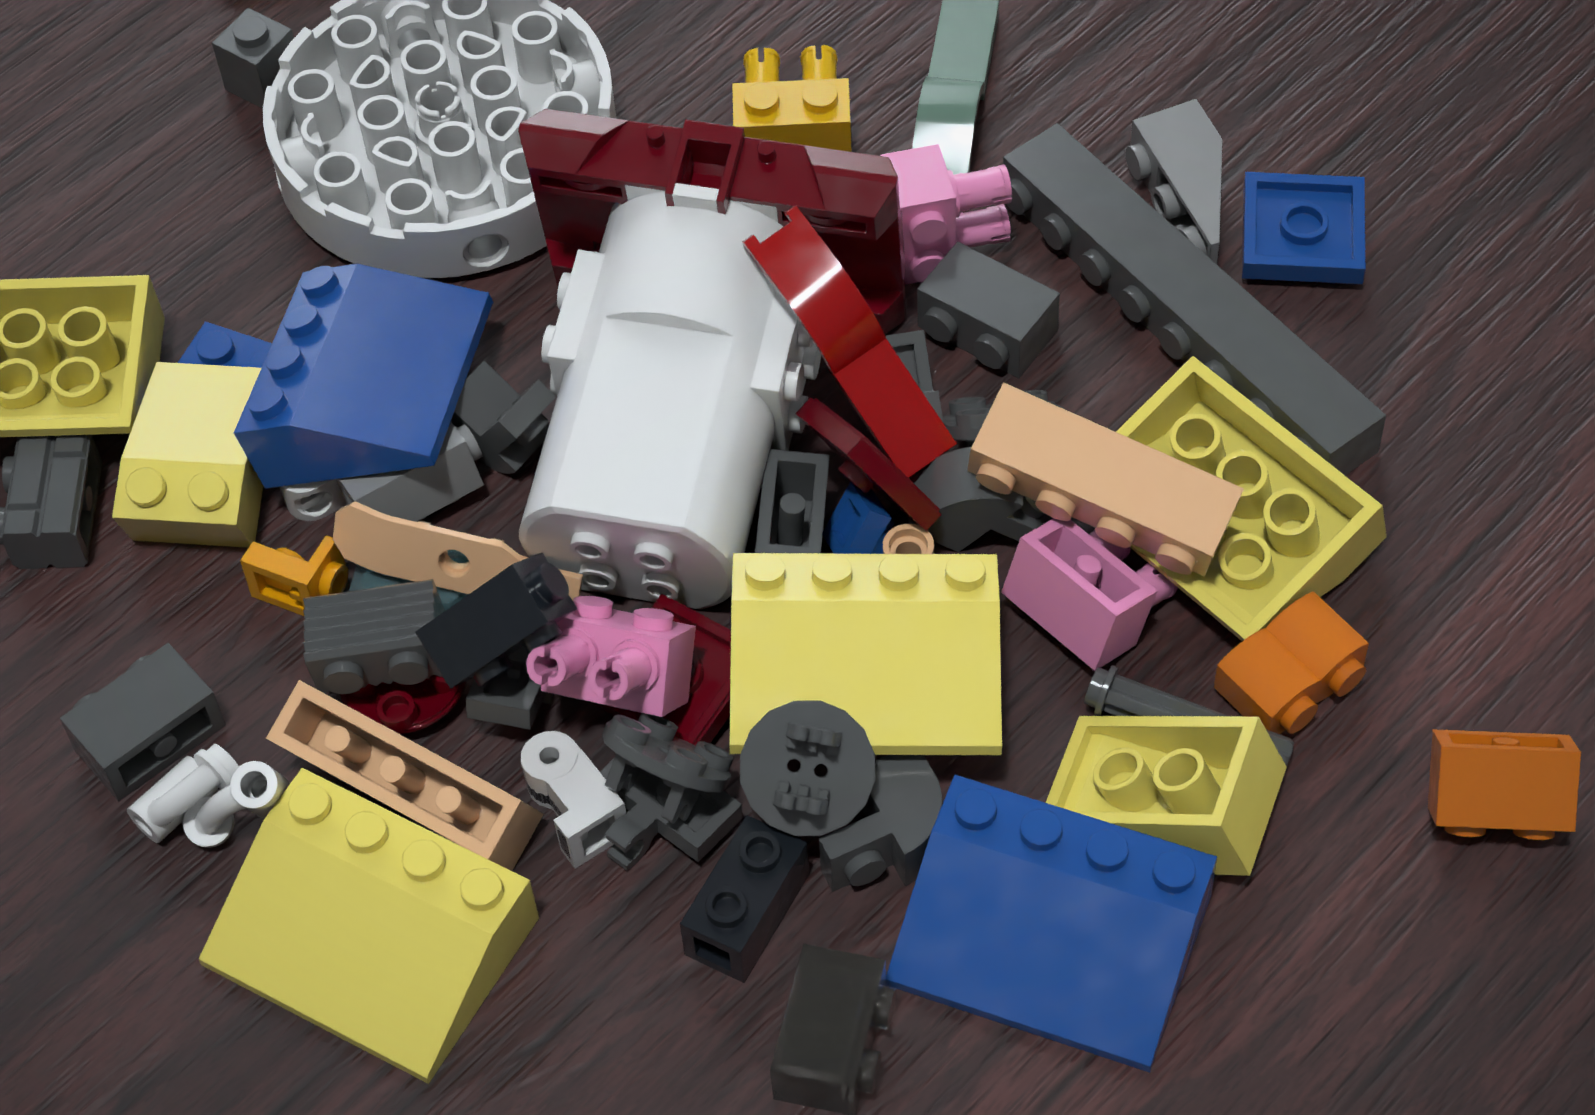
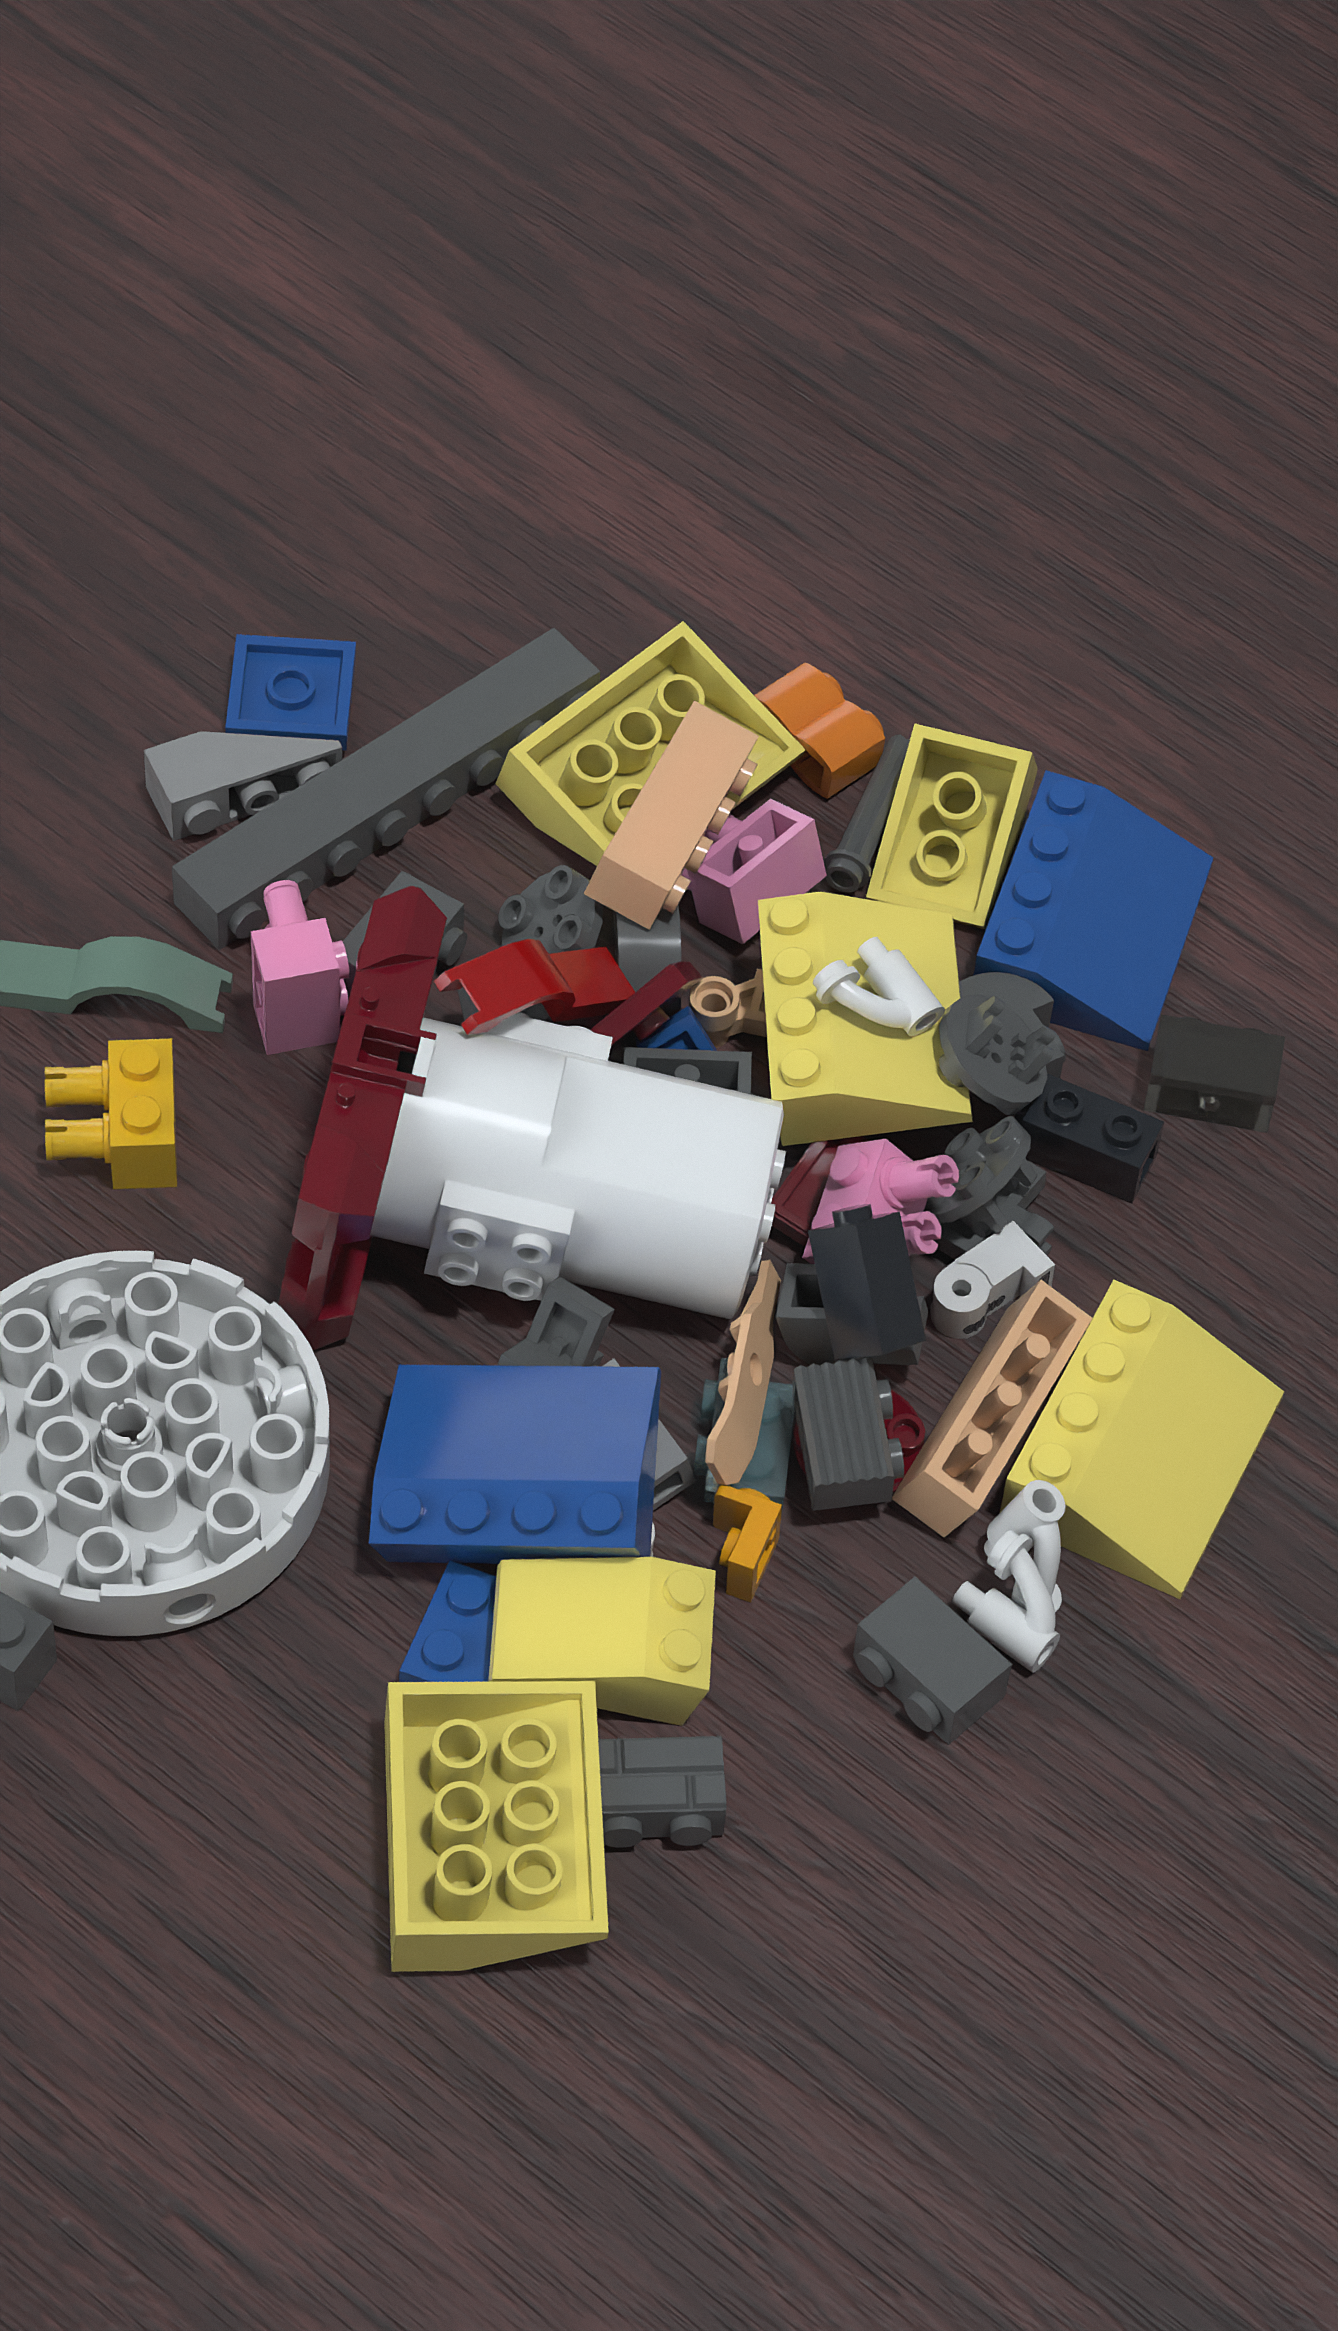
camera: 100 degrees left, 0 degrees up
(867, 658) = (902, 994): none -> white plant
(1503, 782) = (937, 585): orange brick -> none

